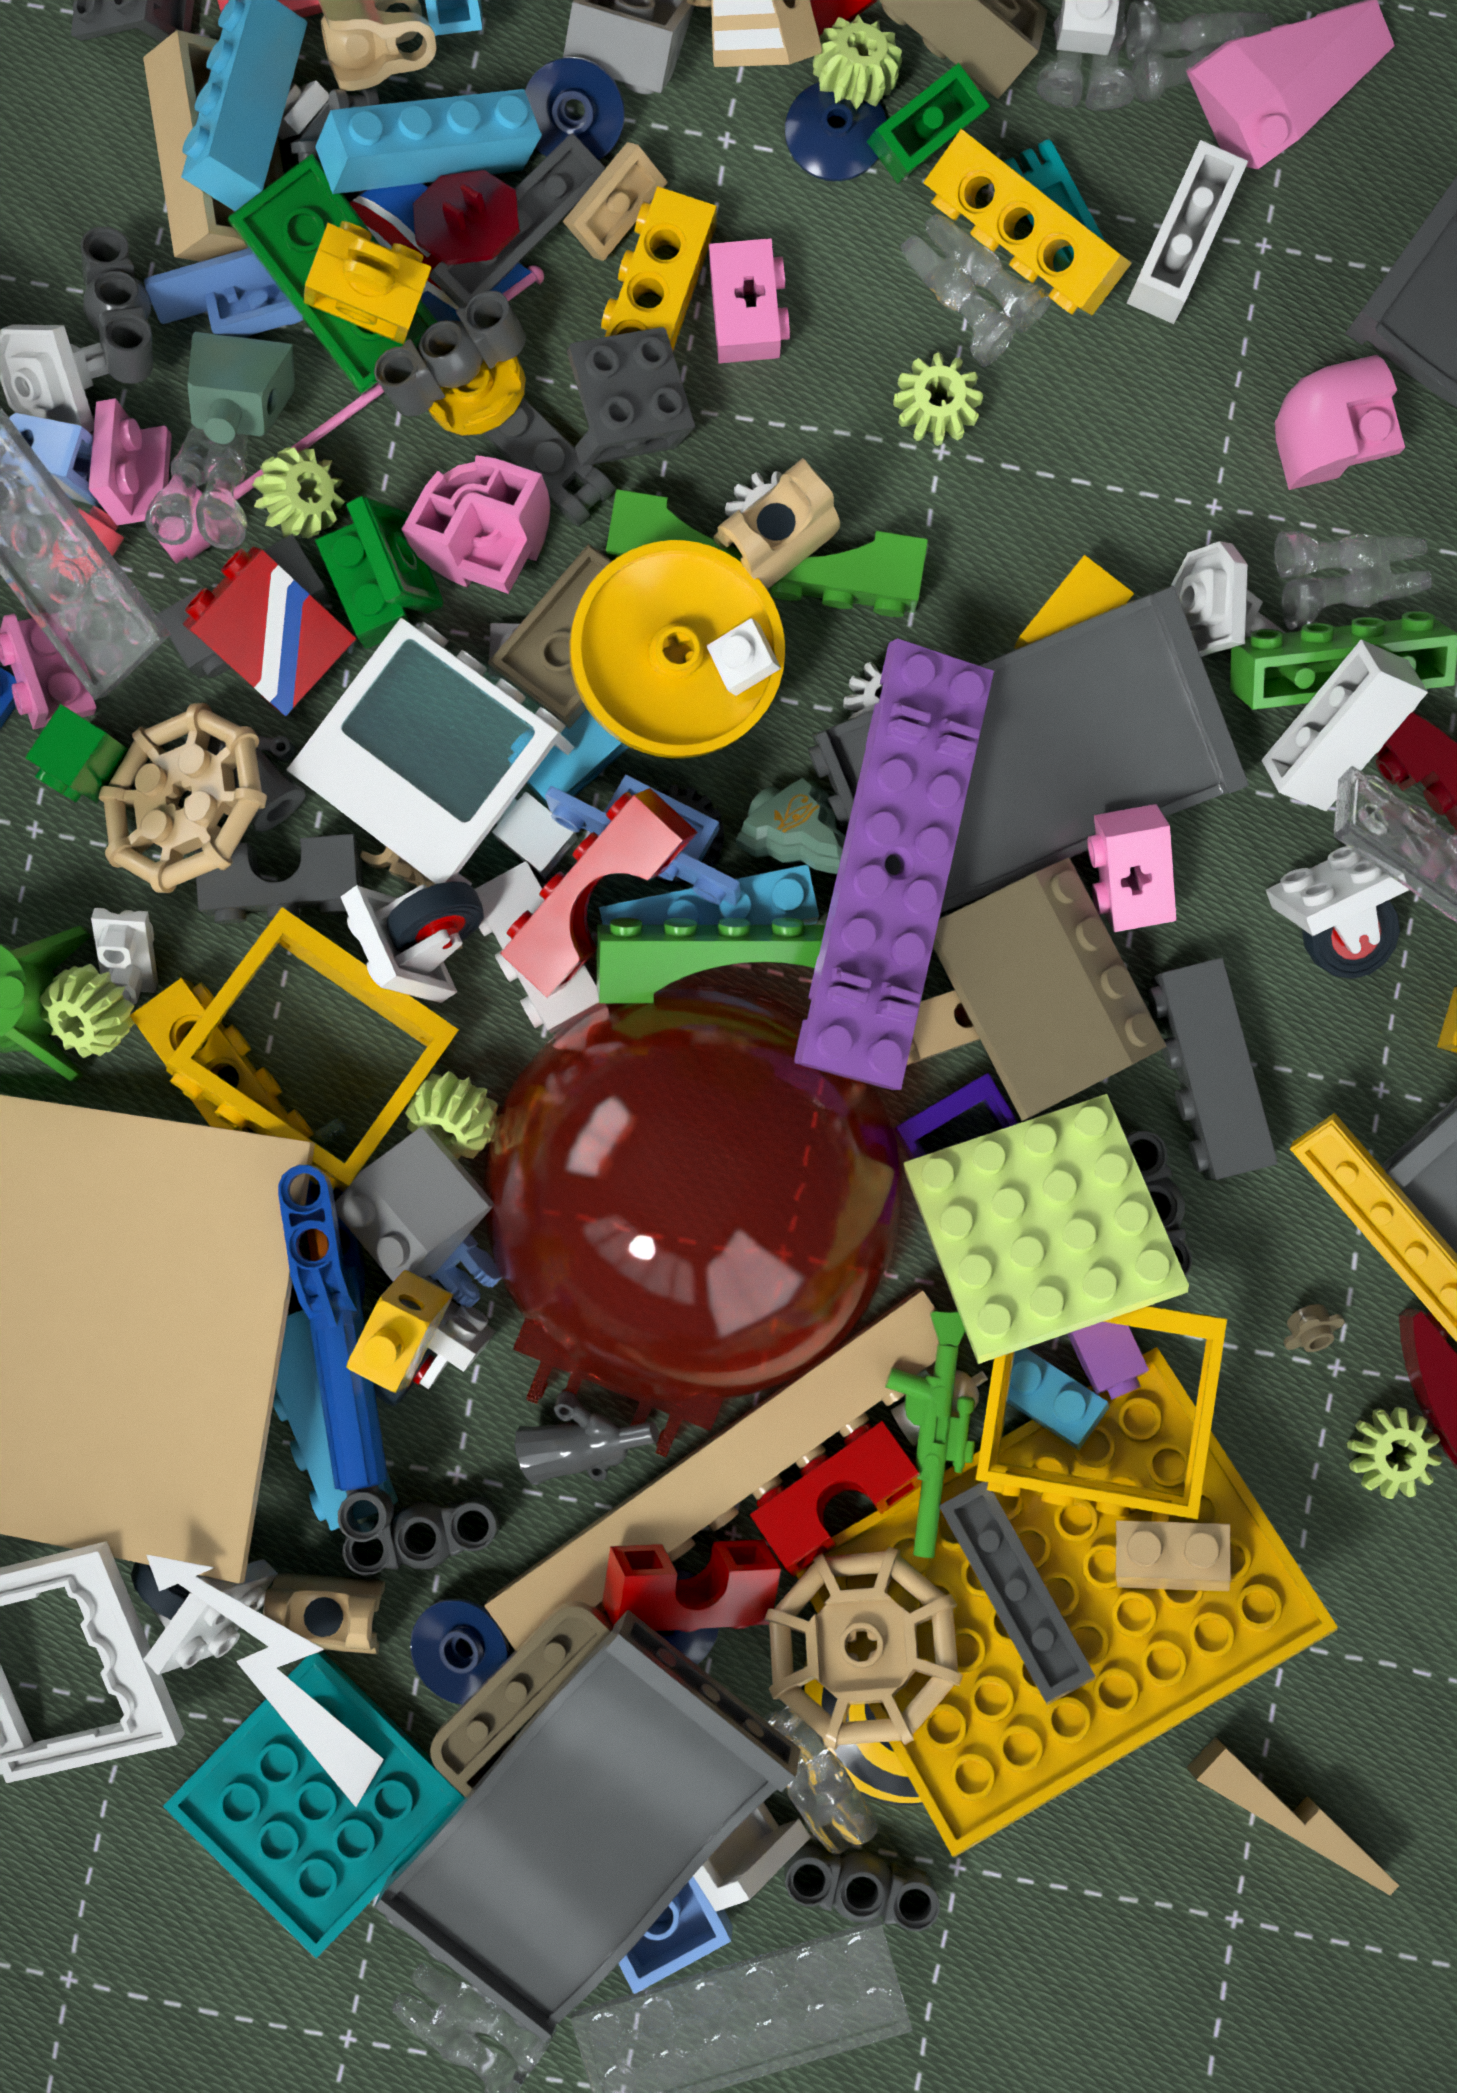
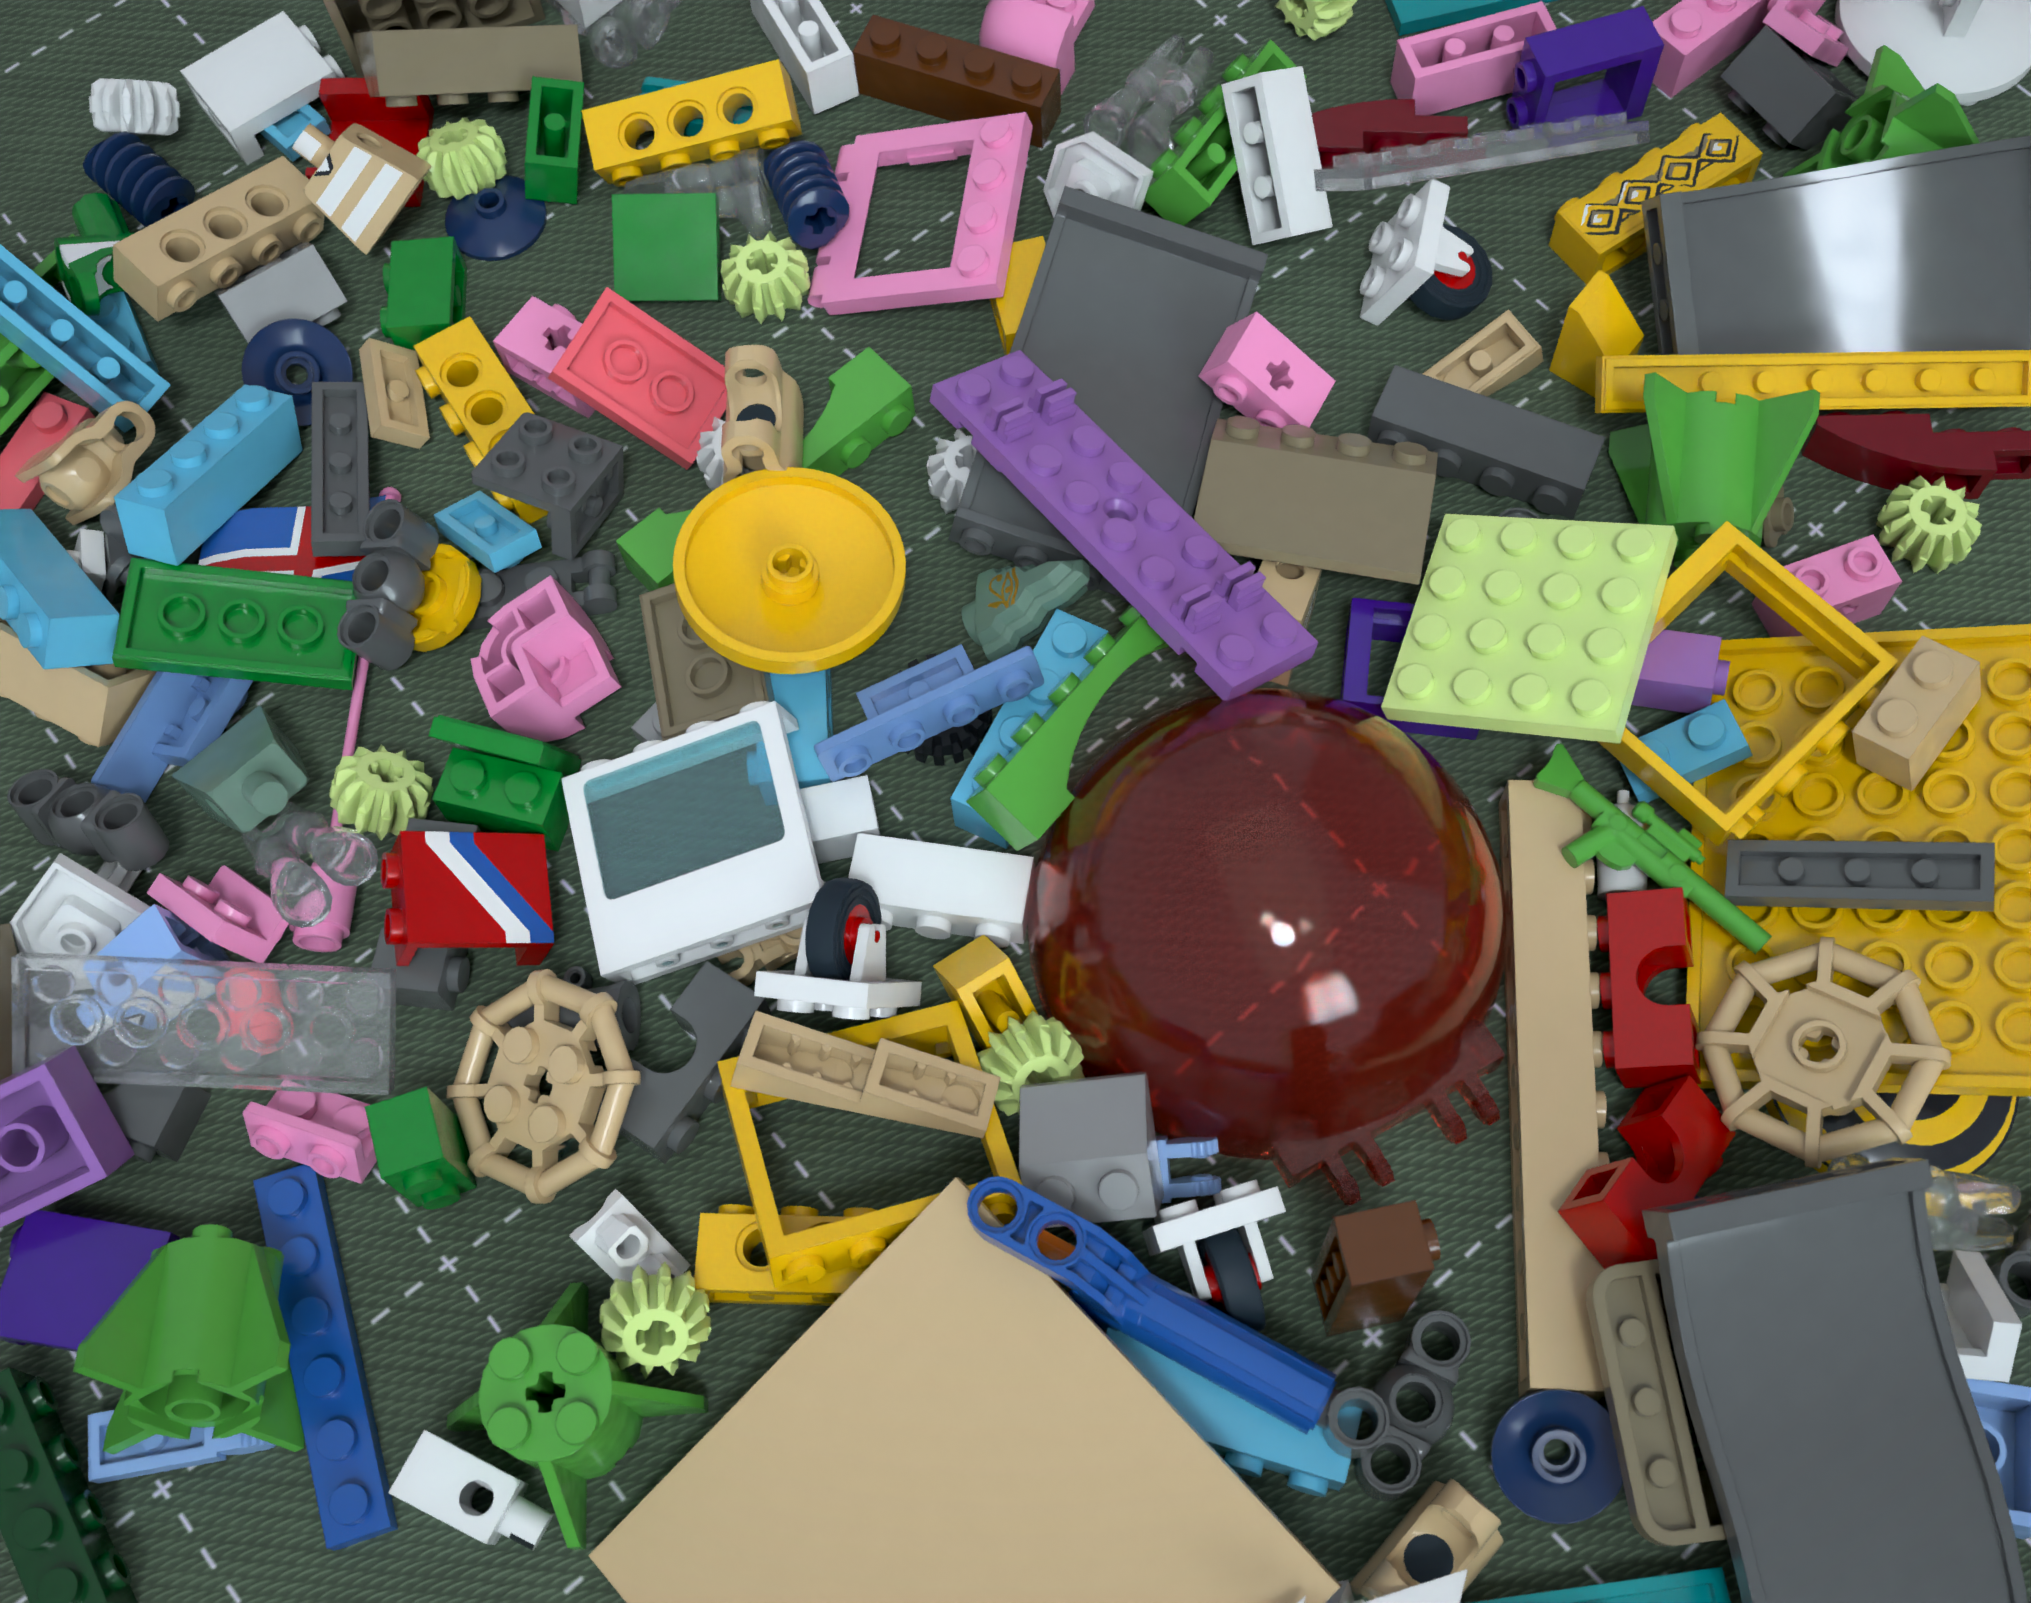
camera: 45 degrees left, 20 degrees down
(344, 1019) = (882, 1083): none -> tan slope
(366, 281) = (271, 578): yellow brick -> none
(399, 1335) = (1208, 1229): yellow torso -> none
(464, 1459) = (1373, 1266): none -> reddish brown brick
(466, 217) = (297, 492): dark red piece -> none
(485, 1041) = (985, 988): none -> yellow slope
(552, 389) = (488, 531): none -> medium azure plate
(556, 938) = (926, 689): arch -> none
(575, 1447) = (1439, 1165): dark grey piece -> none
(715, 145) = (423, 289): none -> green brick
(743, 657) = (842, 521): white plate -> none
(768, 390) = (643, 378): none -> coral plate
(901, 300) = (666, 247): none -> green tile
(1032, 370) = (806, 193): none -> dark blue piece
(1119, 532) = (984, 227): none -> bright pink hinge
(1240, 398) = (954, 77): none -> reddish brown brick
(1271, 1414) = (1850, 578): none -> bright pink brick
(1292, 1017) = (1490, 357): none -> tan slope
(1296, 1266) = (1709, 459): none -> bright green brick
(1370, 1098) = (1594, 327): none -> yellow slope

